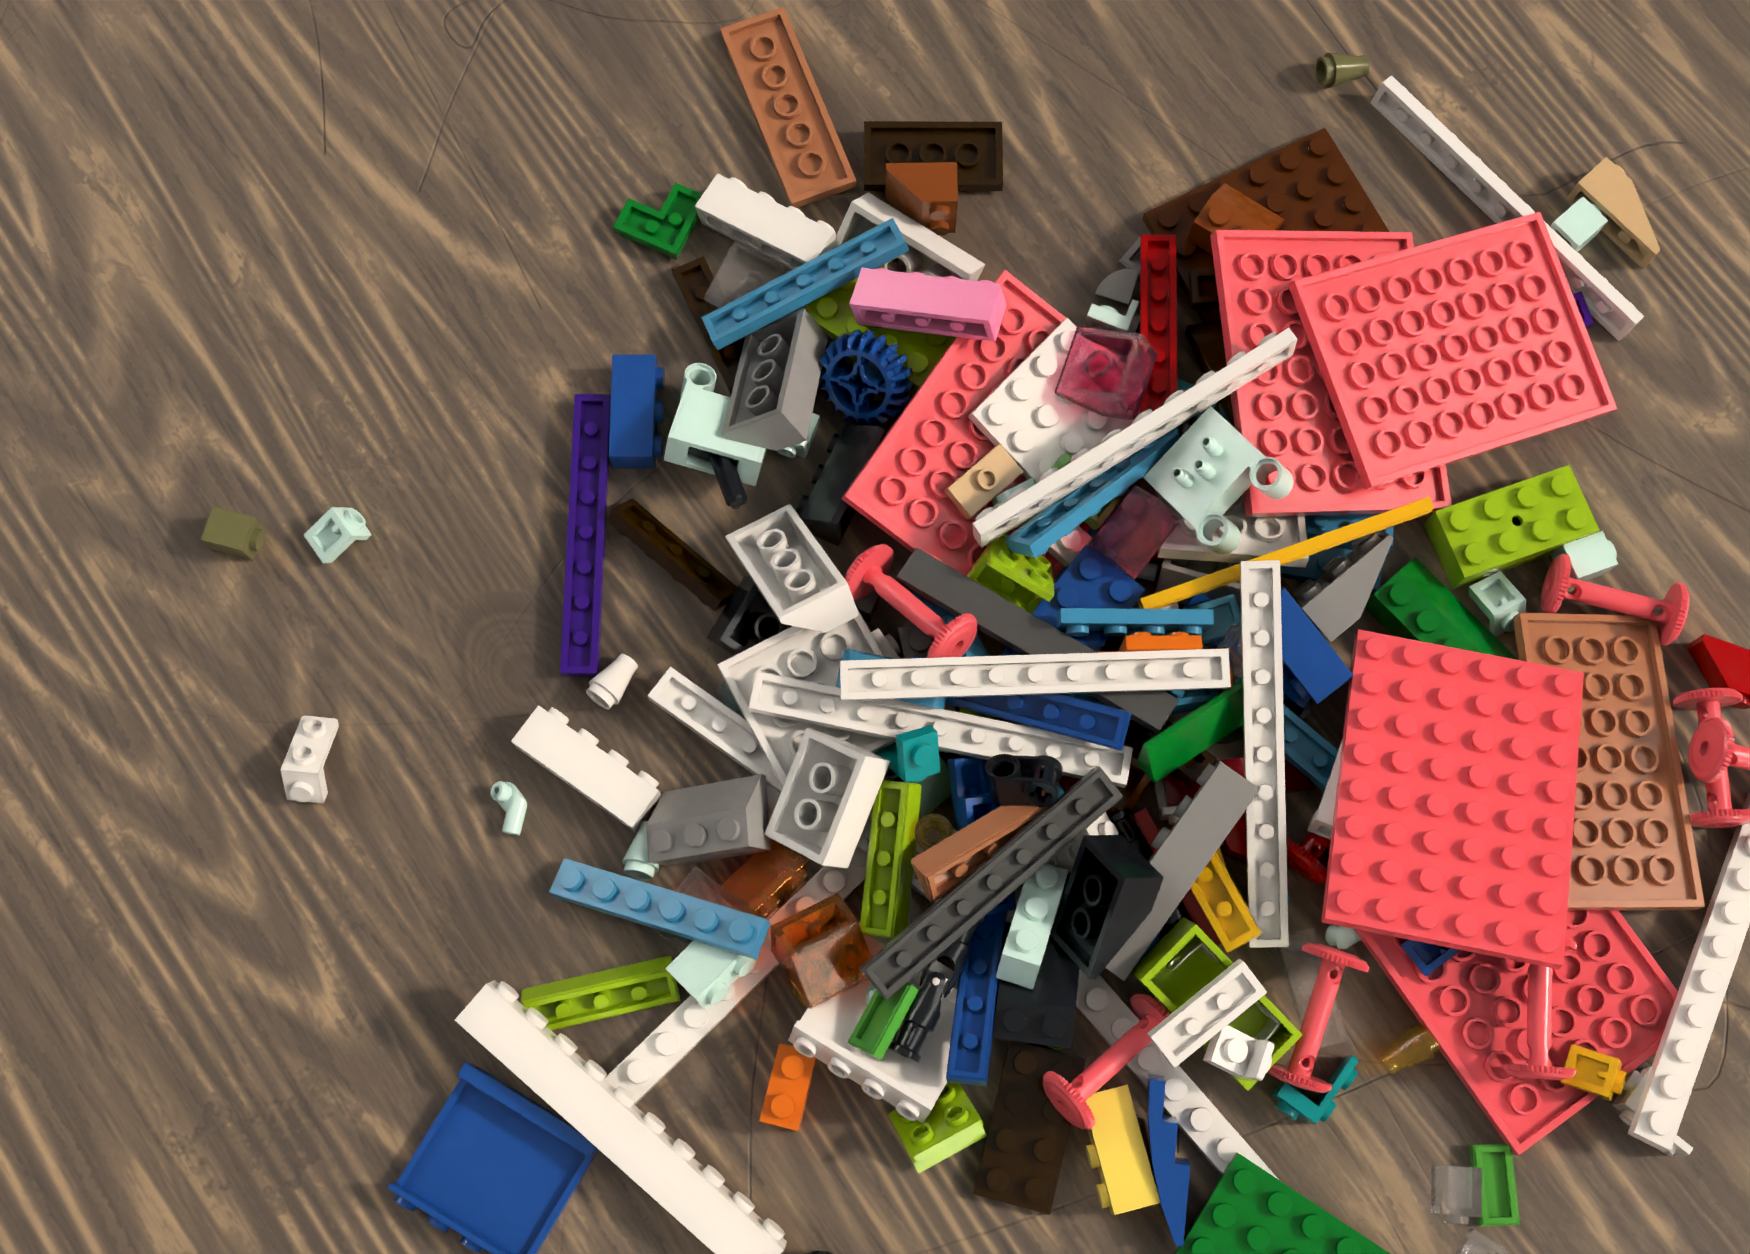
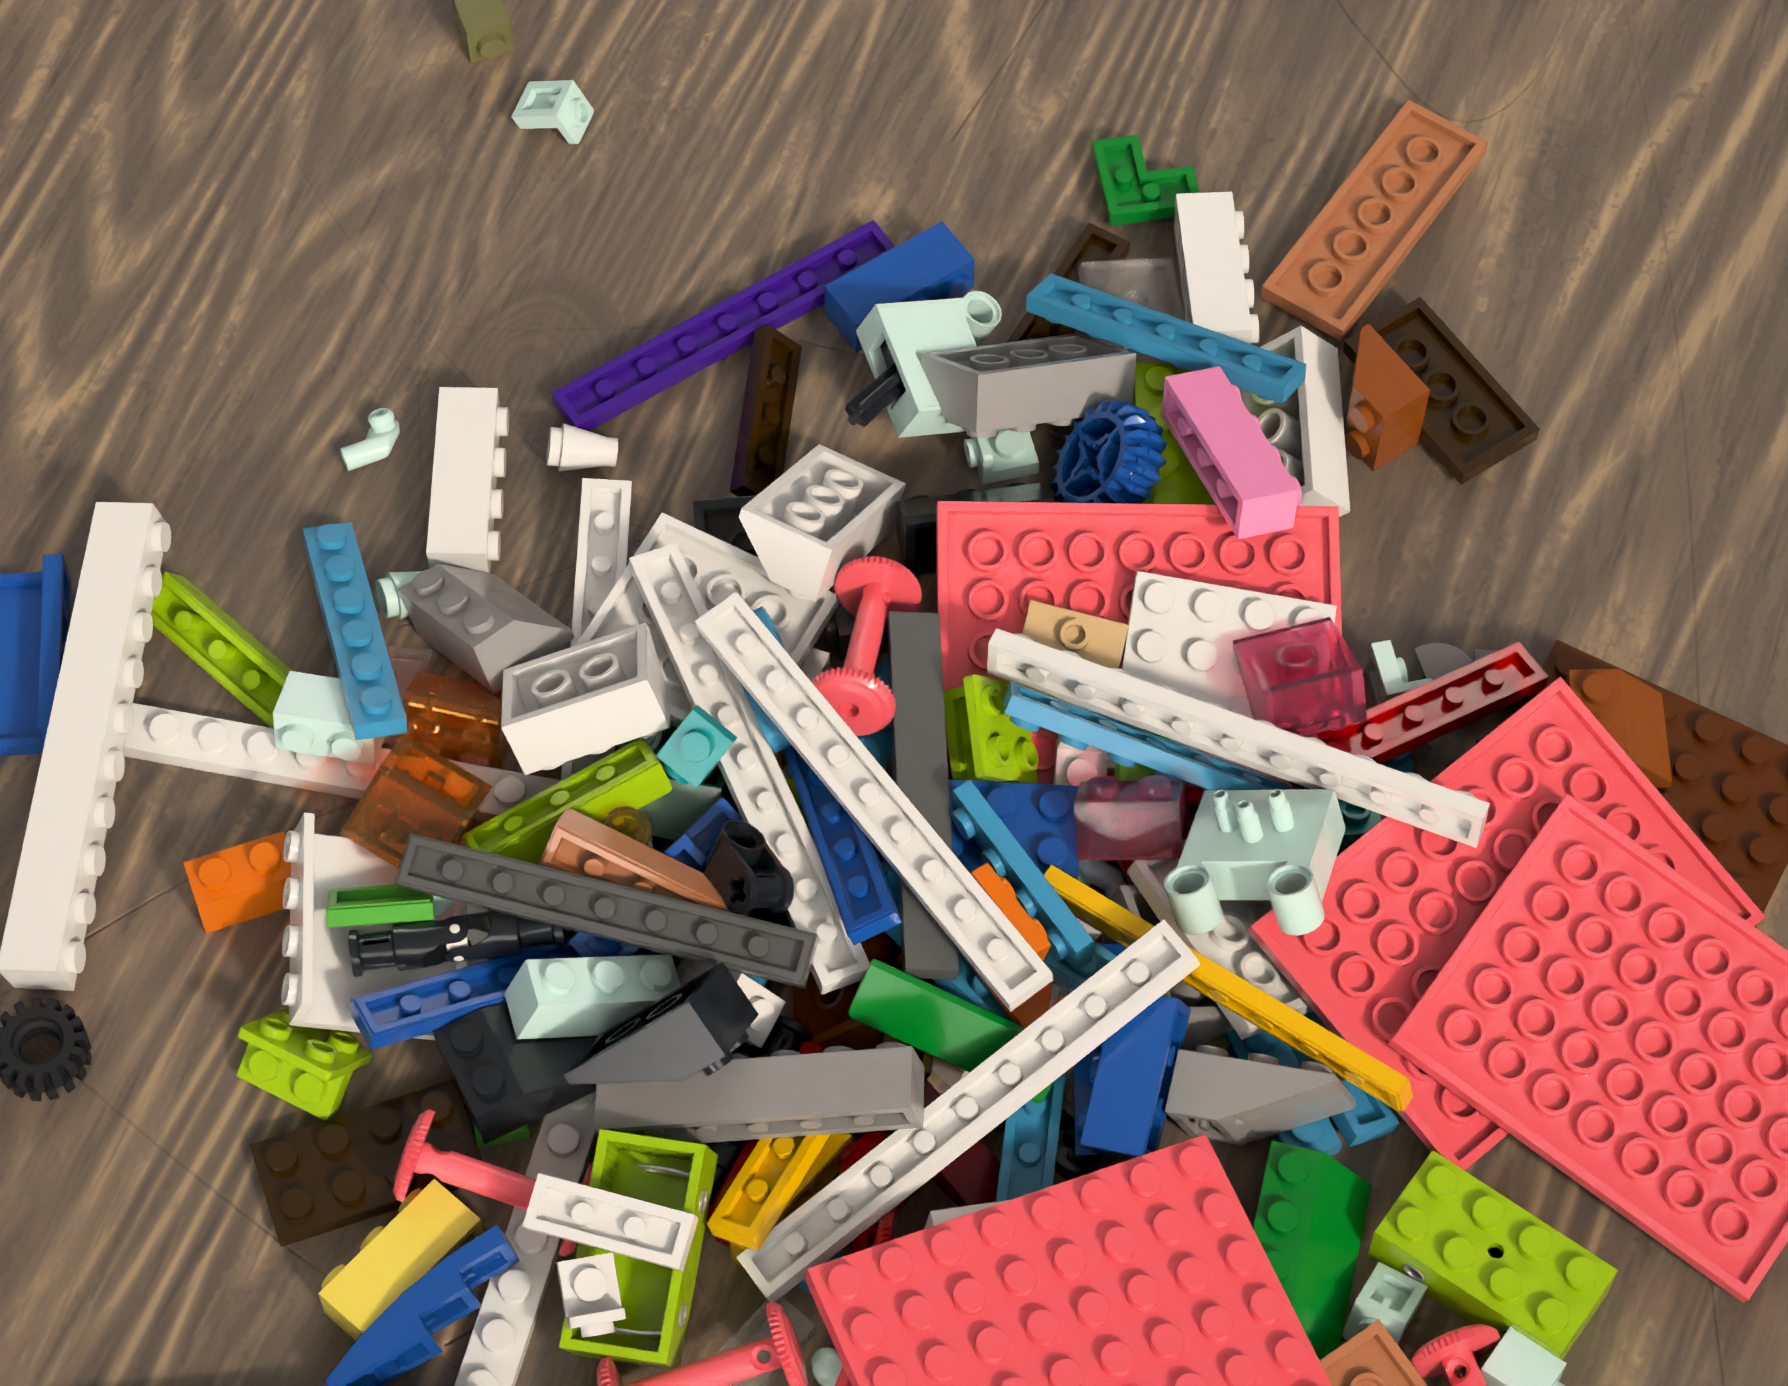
camera: 55 degrees right, 15 degrees down
(305, 759) = (280, 223): white bracket -> none

